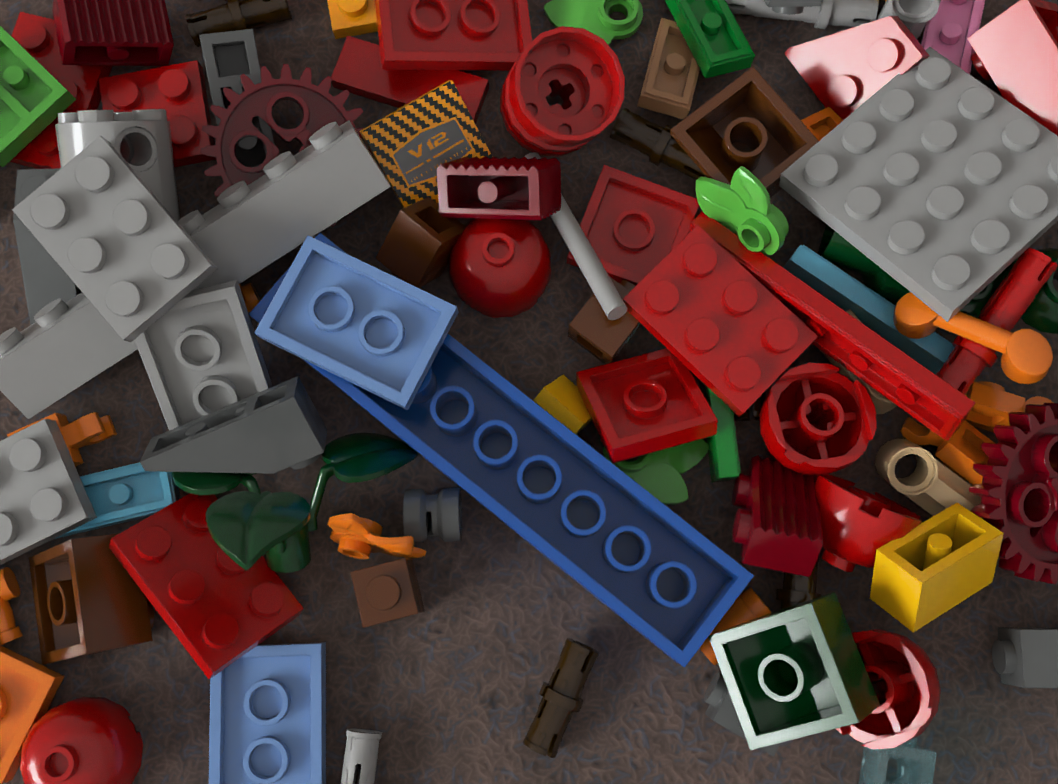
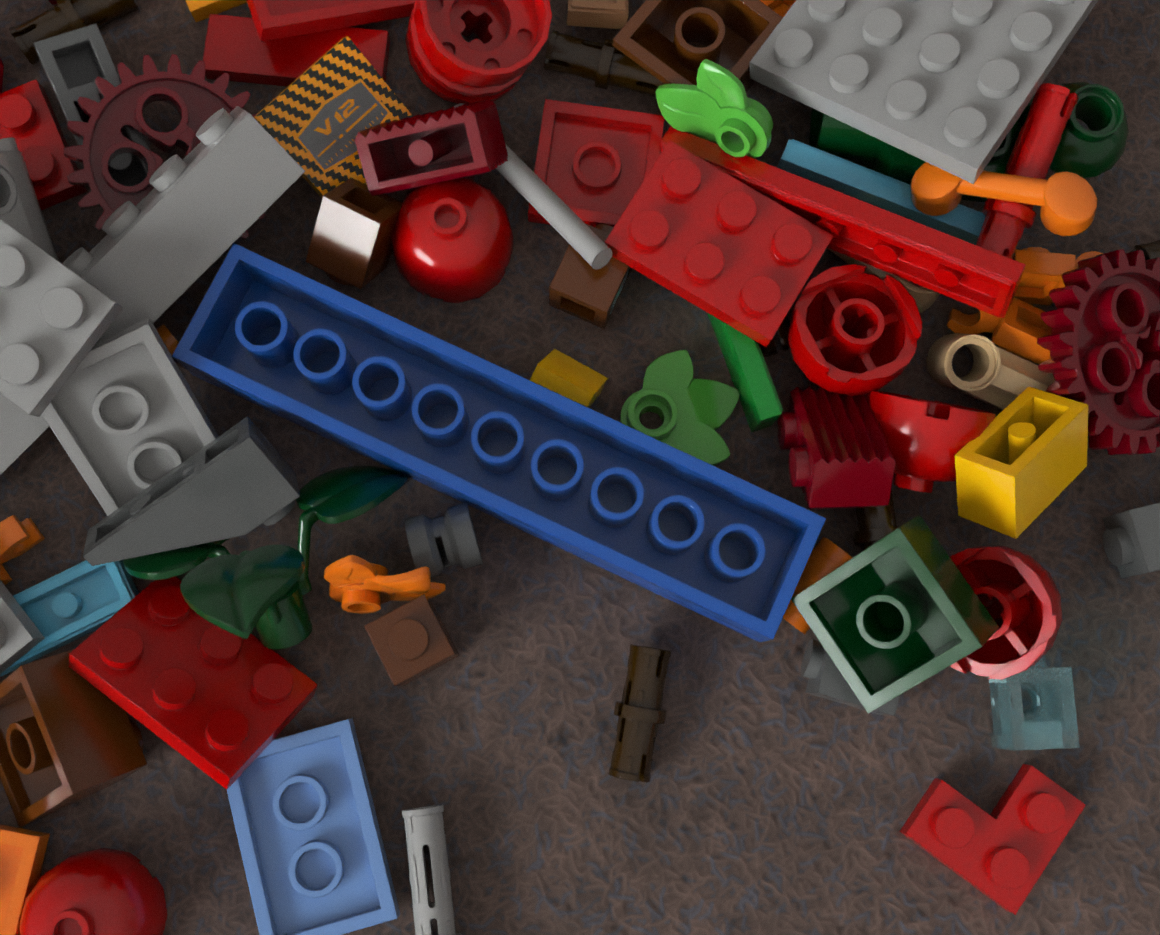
camera: 25 degrees left, 0 degrees up
(357, 322) = (303, 334): medium blue plate -> none
(645, 404) = (657, 358): red plate -> none

